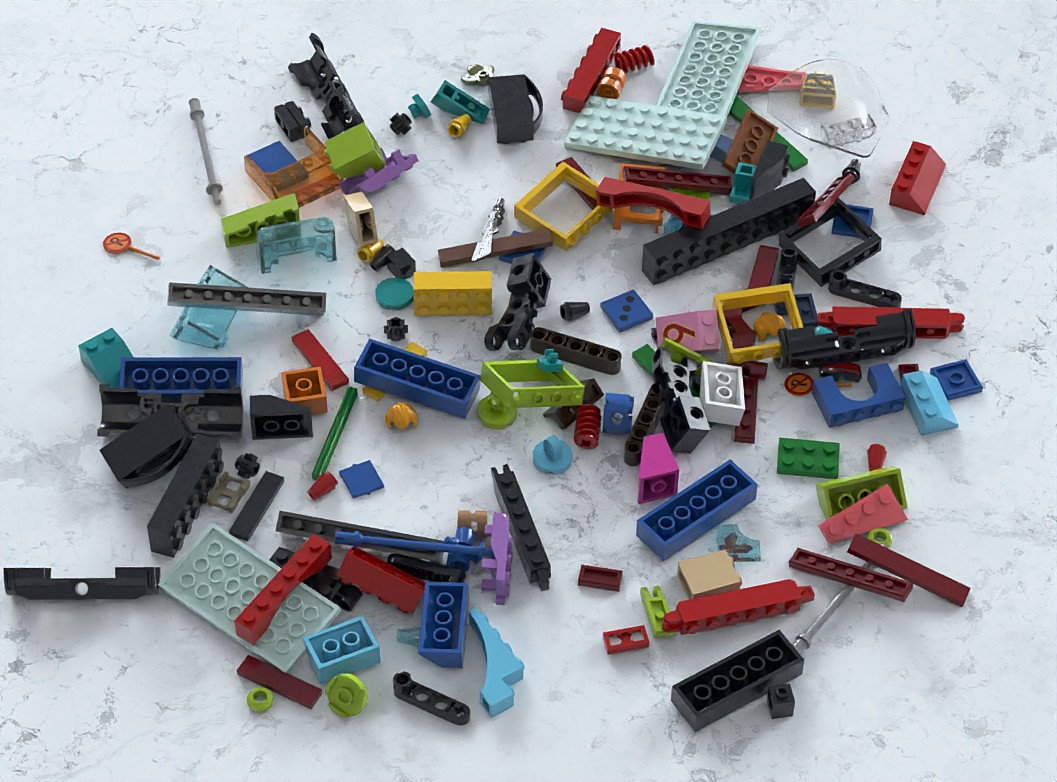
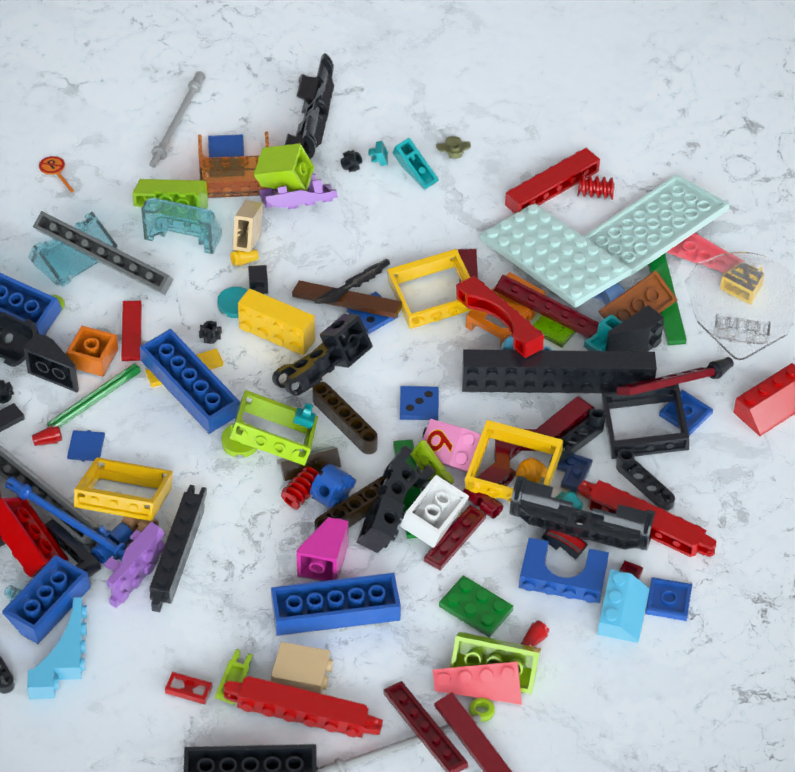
camera: 30 degrees right, 0 degrees up
(291, 120) = (265, 120): black brick -> none
(380, 259) = (242, 269): black cone -> none
(401, 415) = (155, 405): light orange hair -> none
(443, 511) = (122, 504): none -> yellow window
(459, 125) = (401, 182): yellow cone -> none
(513, 108) = (453, 186): black piece -> none
(552, 455) = (255, 499): medium azure tile -> none
(572, 310) = (373, 382): black cone -> none
(600, 578) = (212, 624): dark red tile -> none
(611, 83) = (559, 200): orange wheel -> none
(736, 544) = (349, 652): clear light blue tile -> none
(801, 384) = (518, 538): piece -> none

